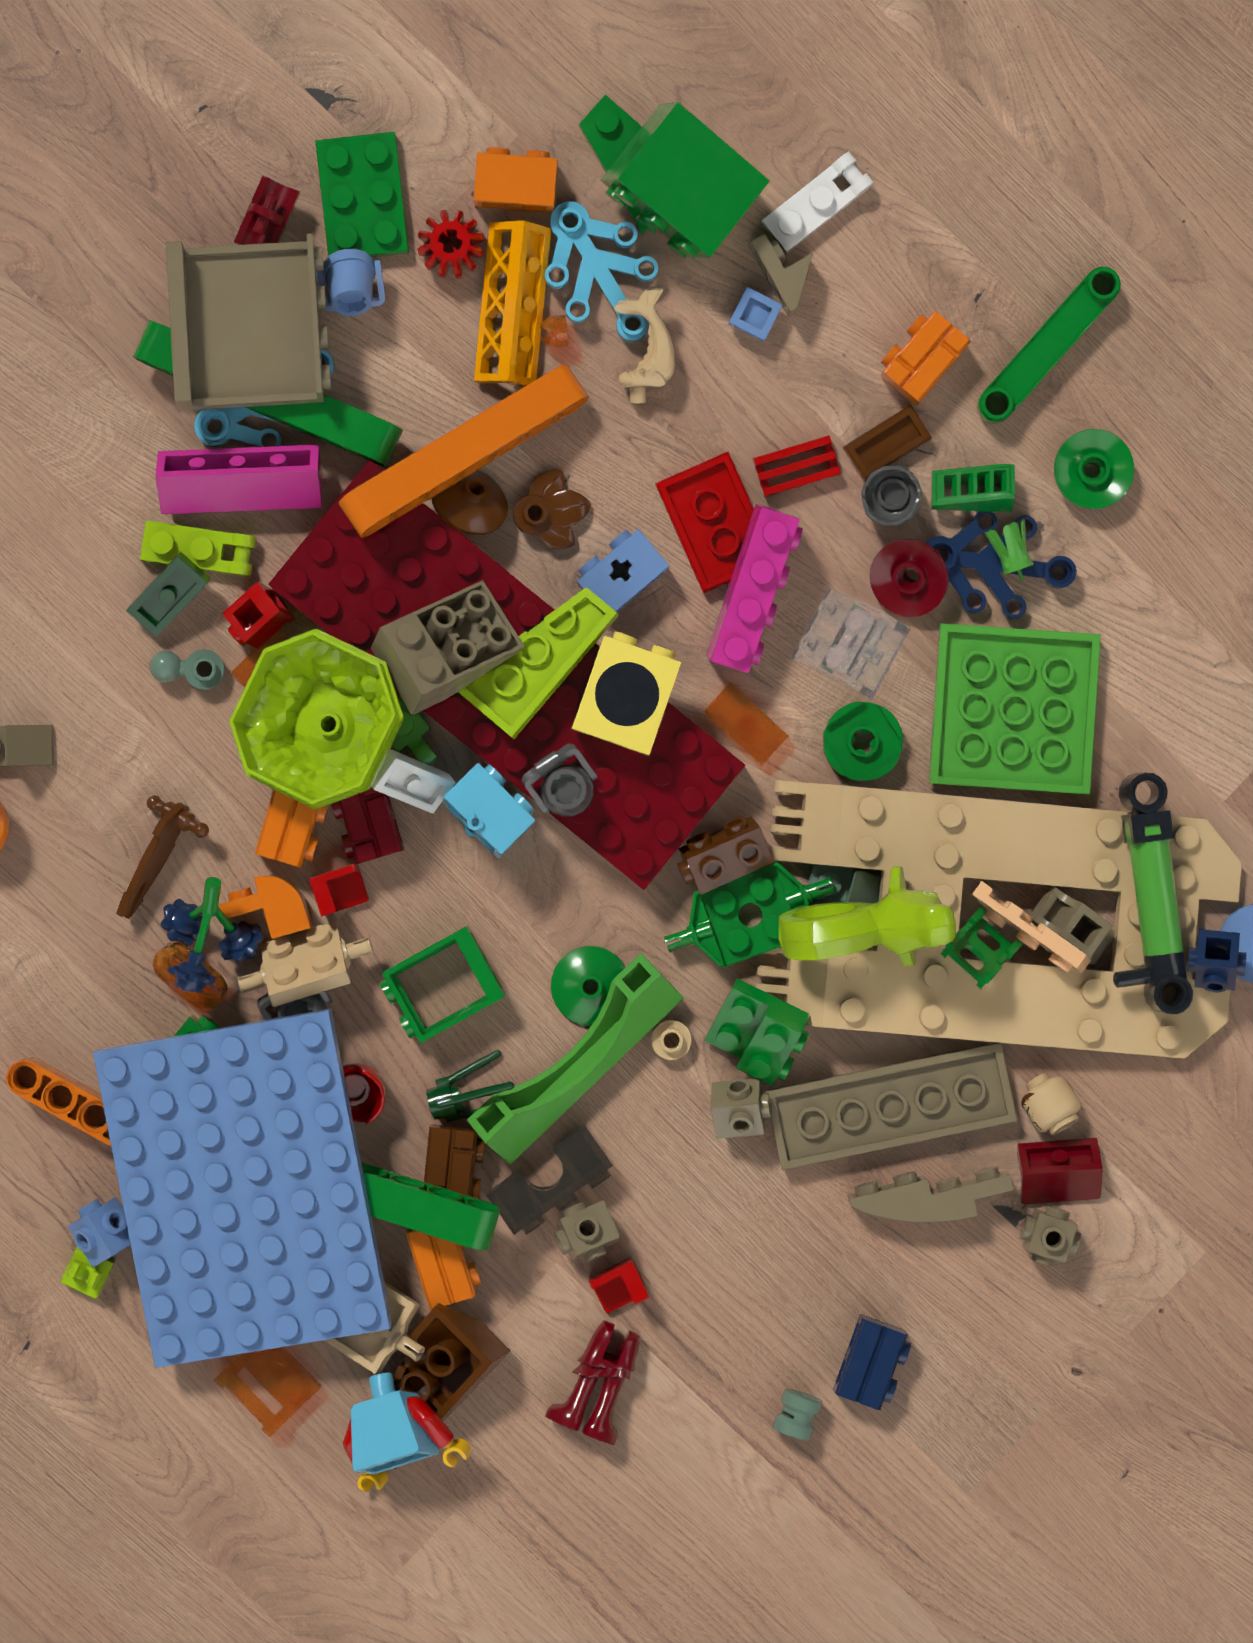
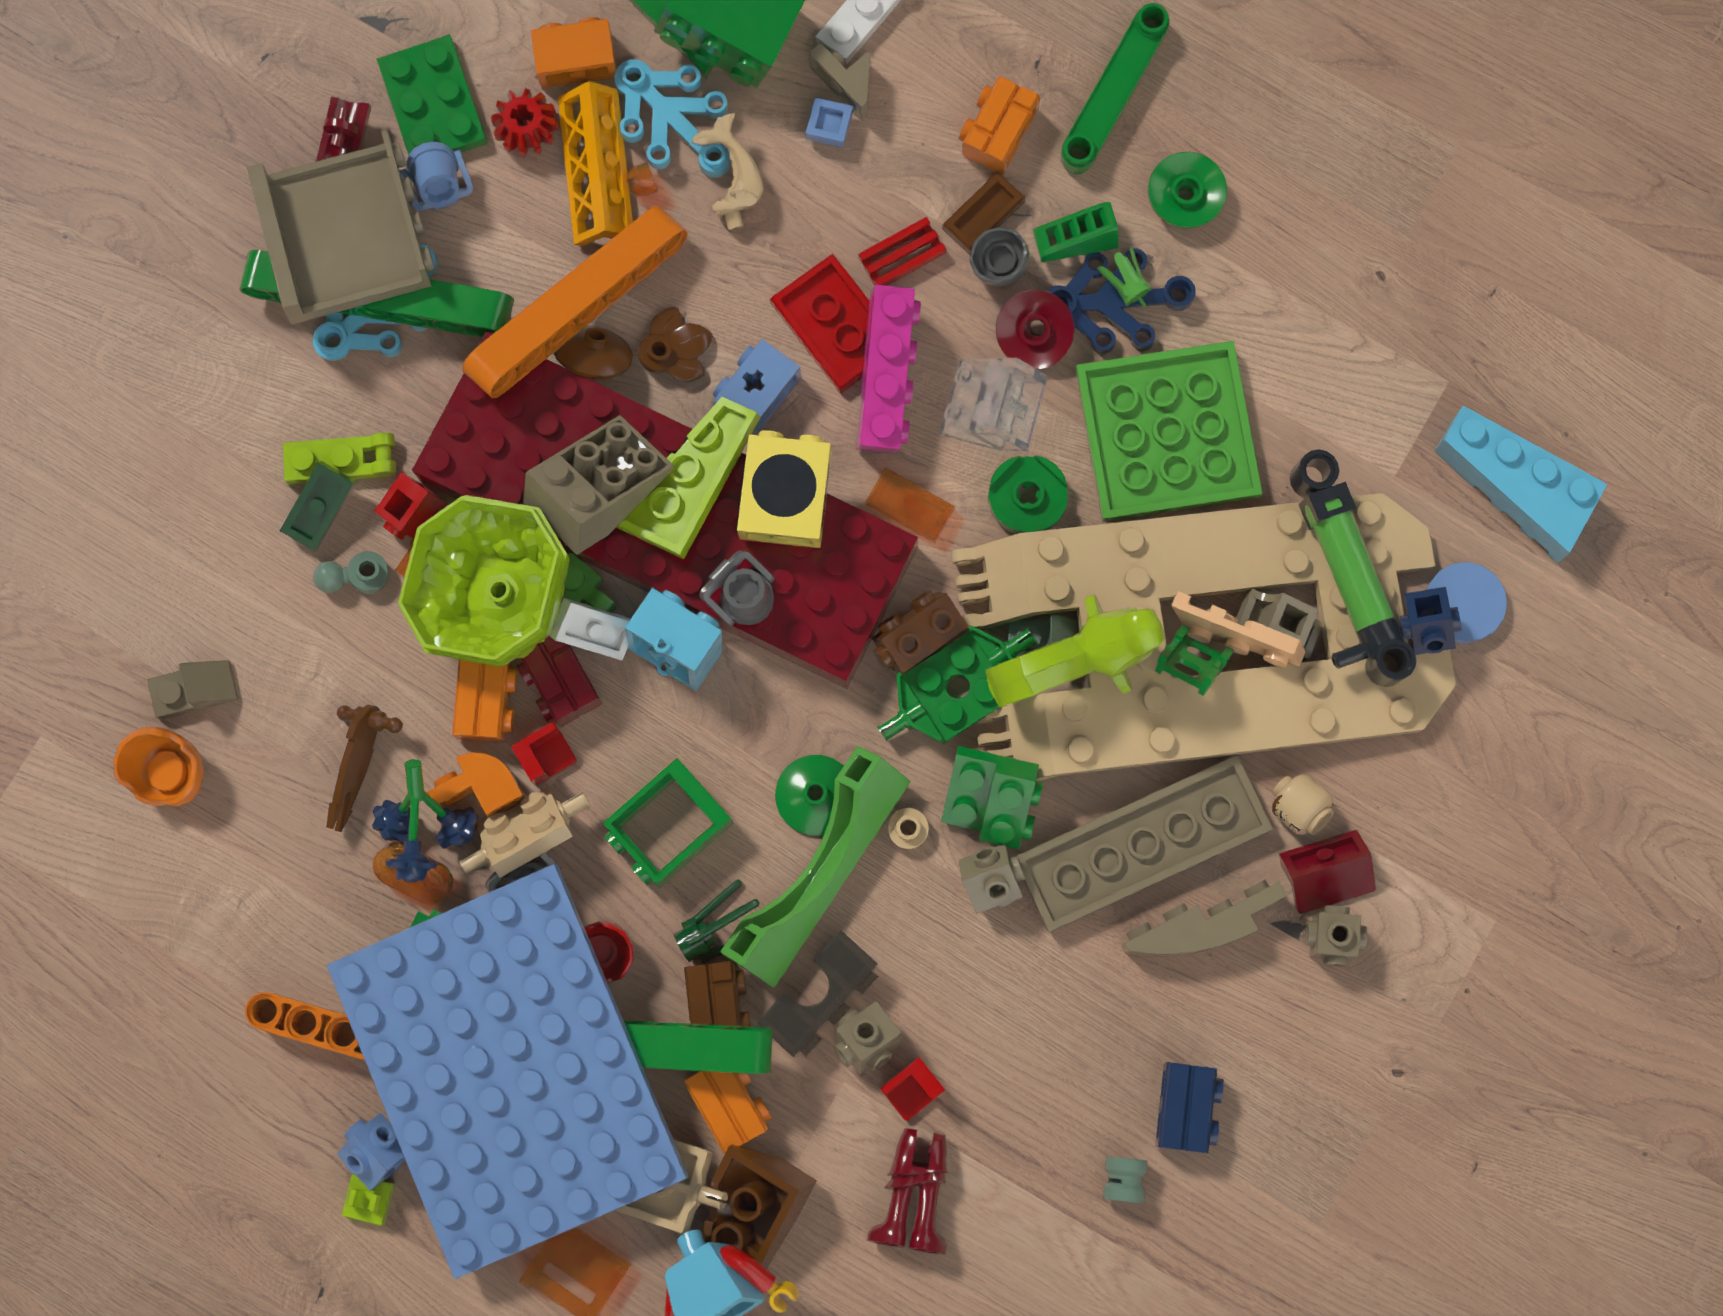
camera: 10 degrees left, 10 degrees down
(239, 479) = (365, 381): dark pink brick -> none

